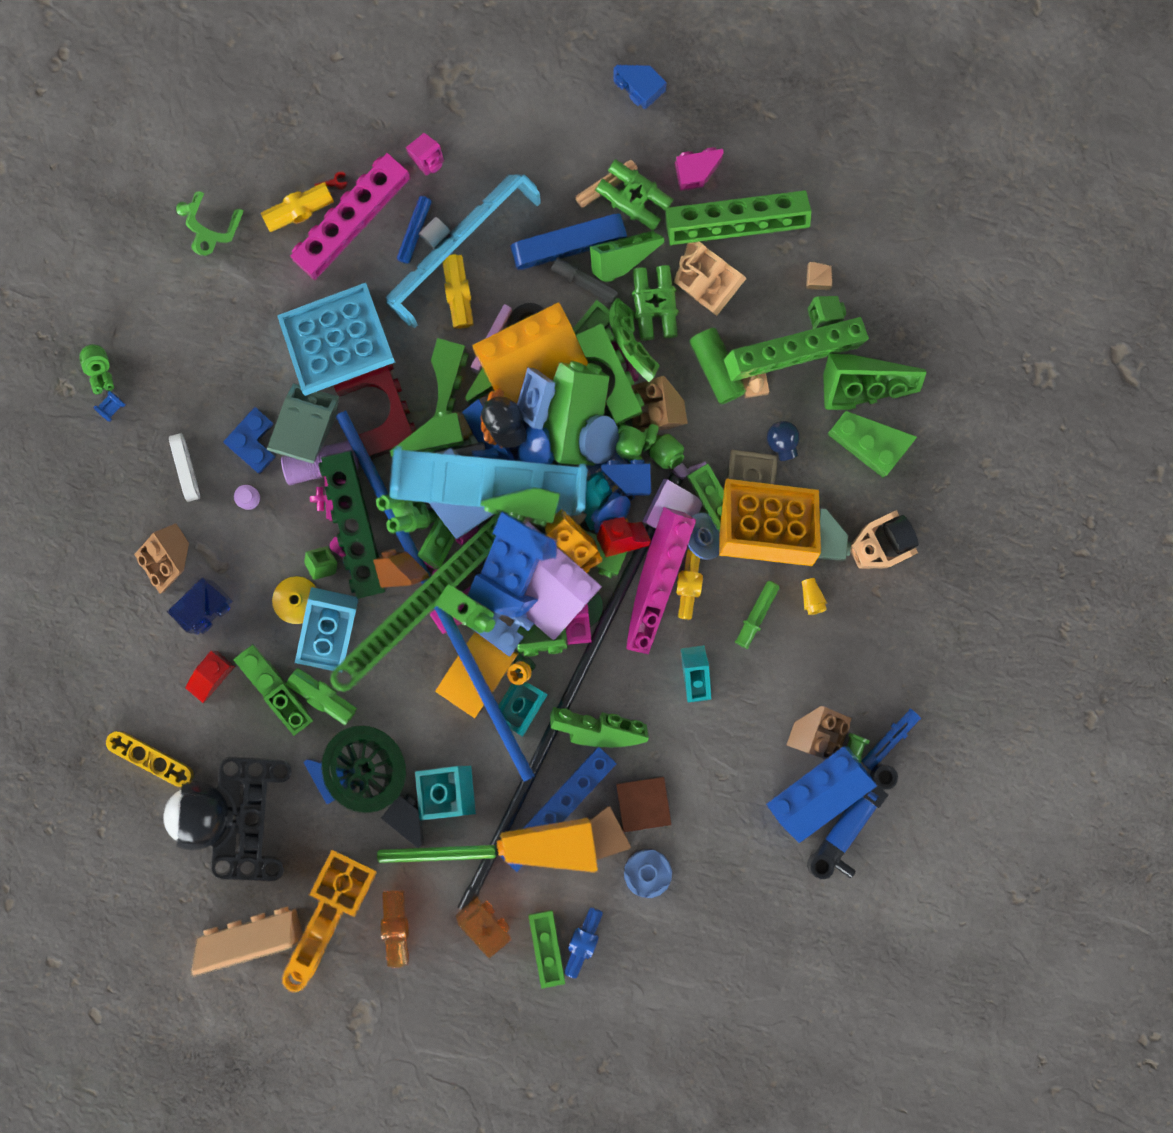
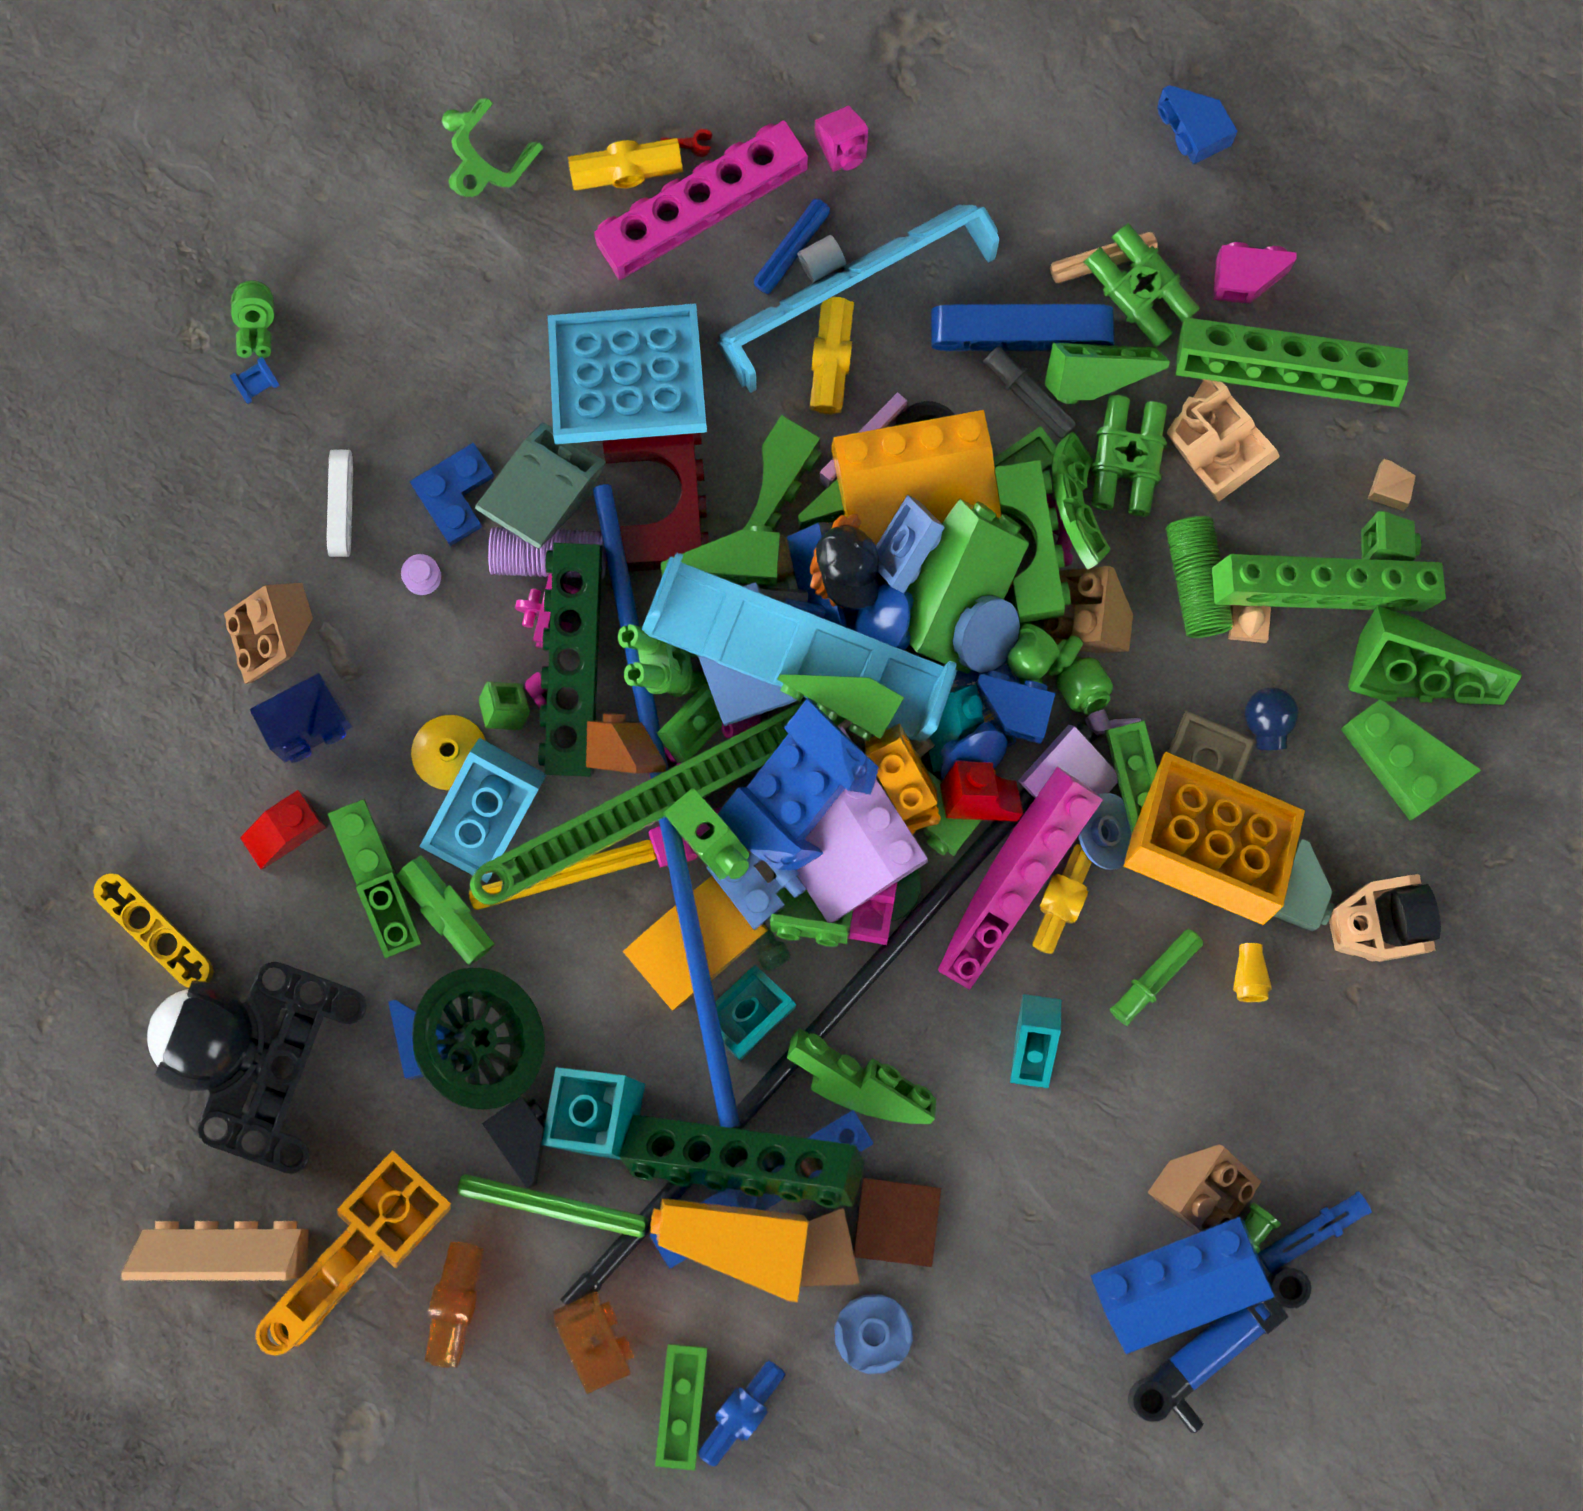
camera: 15 degrees right, 5 degrees down
(408, 641) = (588, 868): none -> yellow axle
(484, 796) = (652, 1136): none -> dark green brick
(512, 675) = (750, 963): light orange bush -> none

